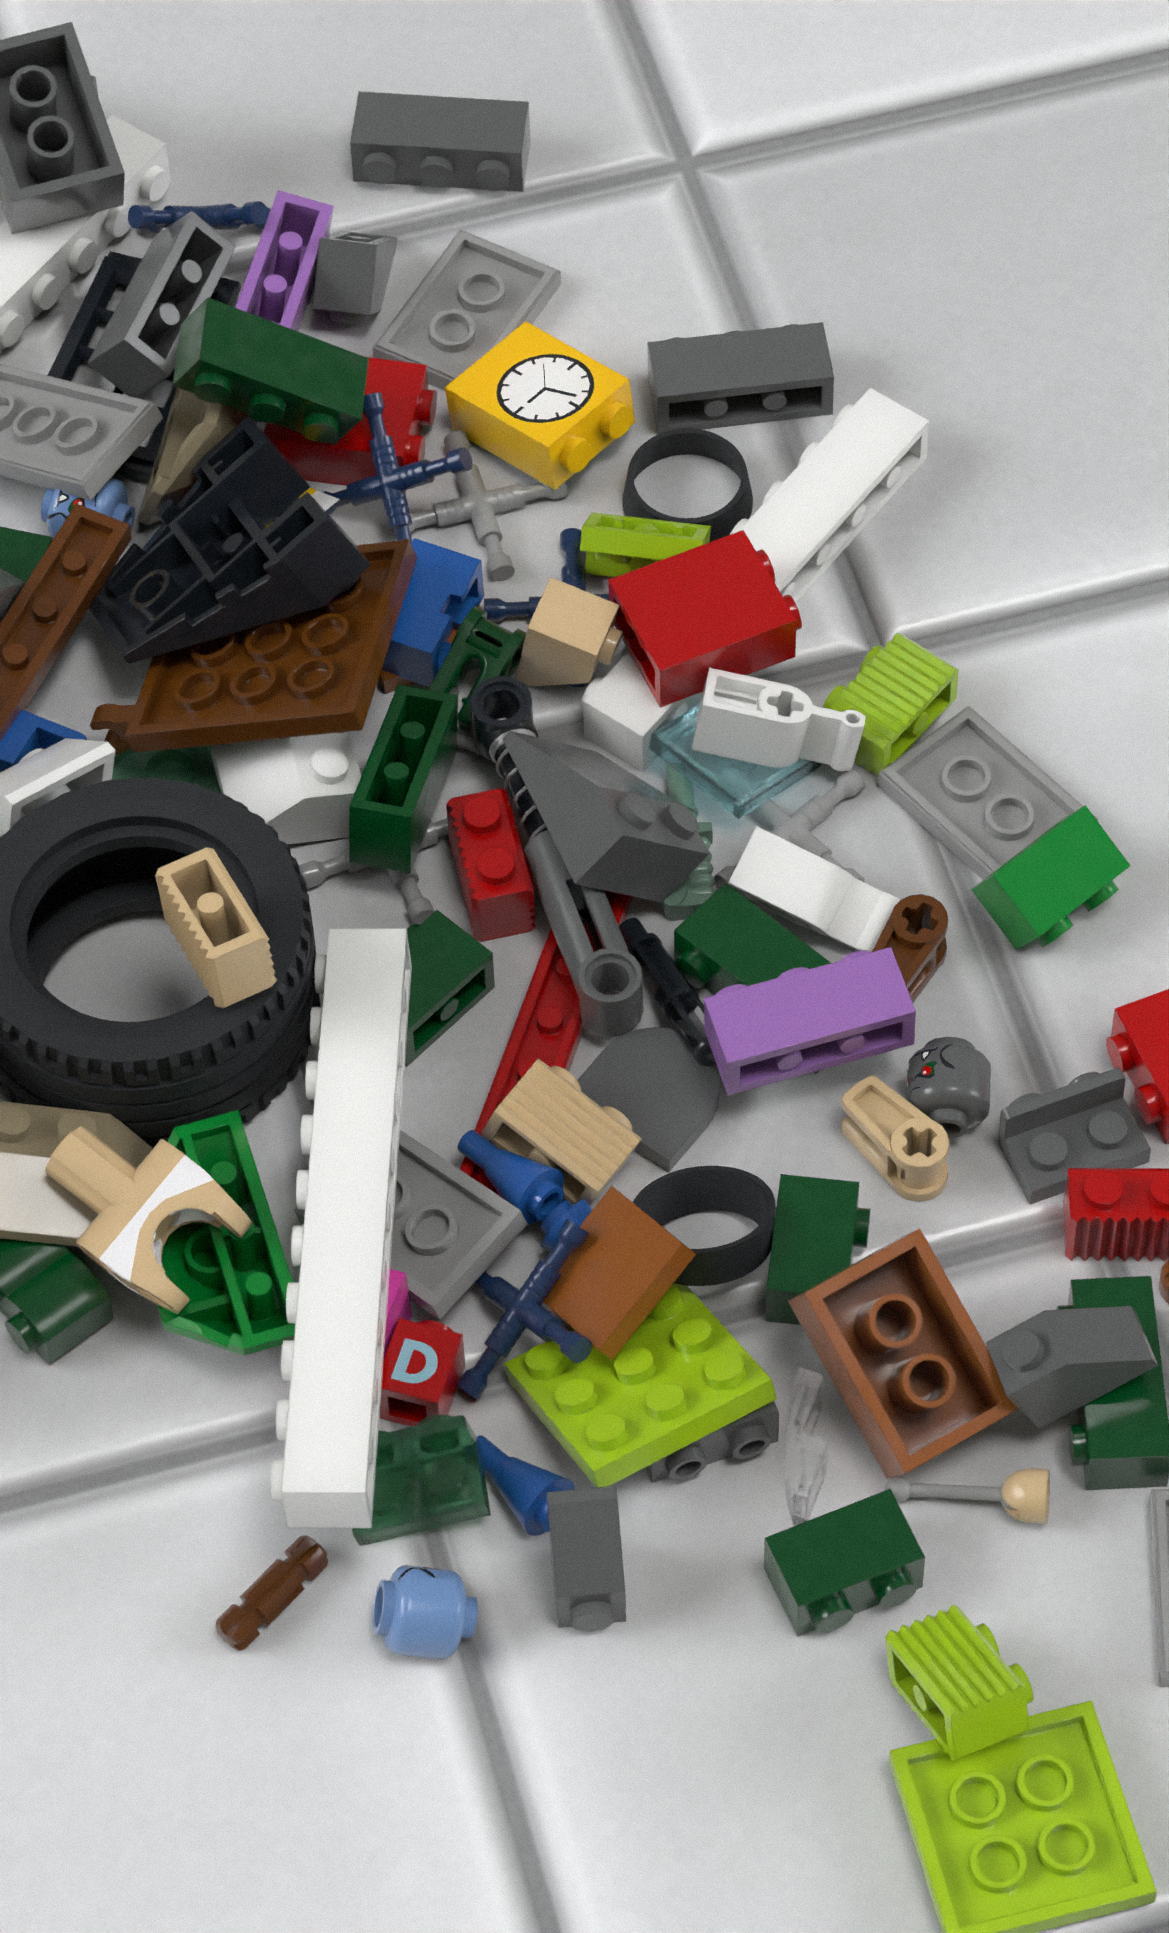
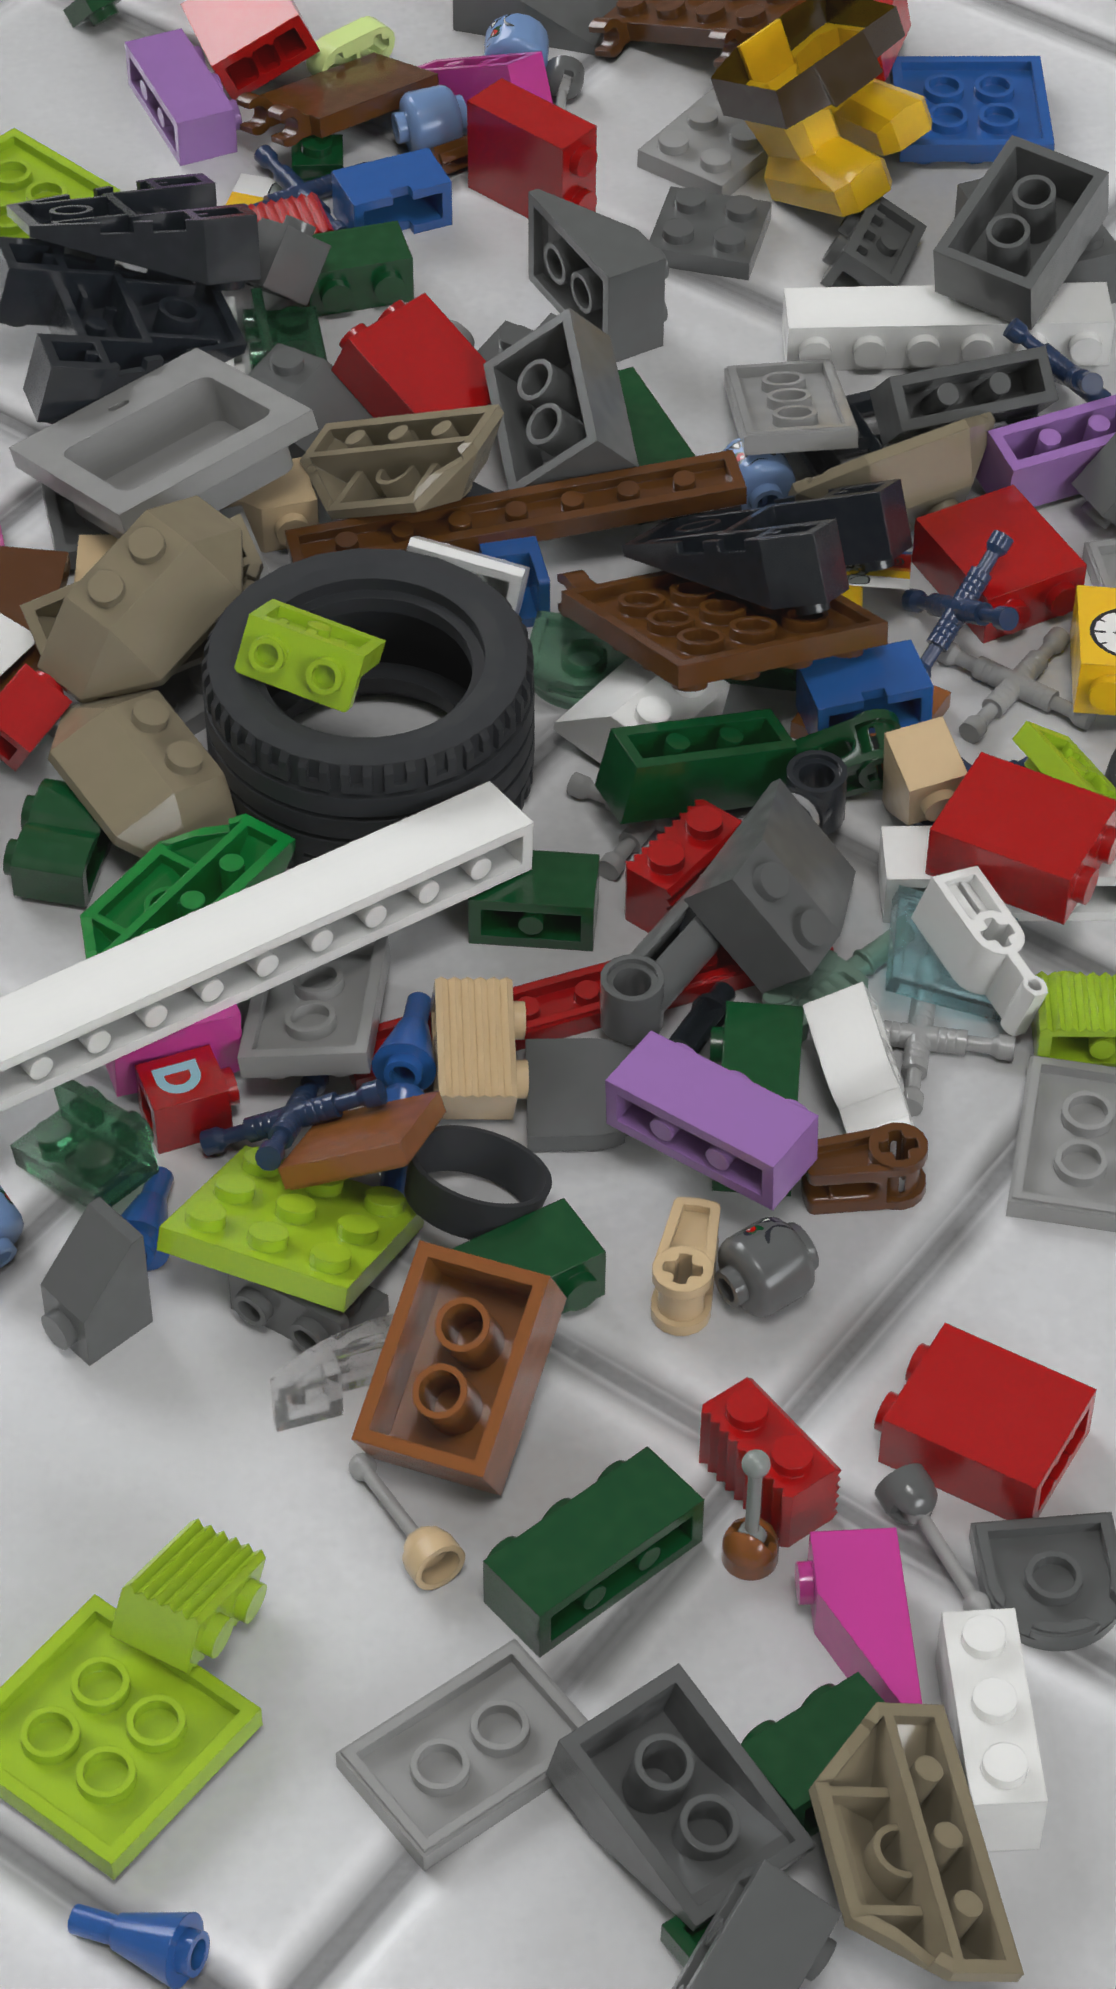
camera: 50 degrees right, 10 degrees down
(105, 957) = (306, 654): none -> lime bracket
(140, 1208) = (141, 828): tan connector -> none
(215, 927) = (379, 681): tan brick -> none
(270, 372) = (943, 459): dark green brick -> none
(844, 1563) = (250, 1463): dark green brick -> none
(1051, 879) = (1037, 1216): green brick -> none
(1069, 1358) = (550, 1475): dark grey slope -> none
(1070, 1128) = (818, 1379): dark grey bracket -> none

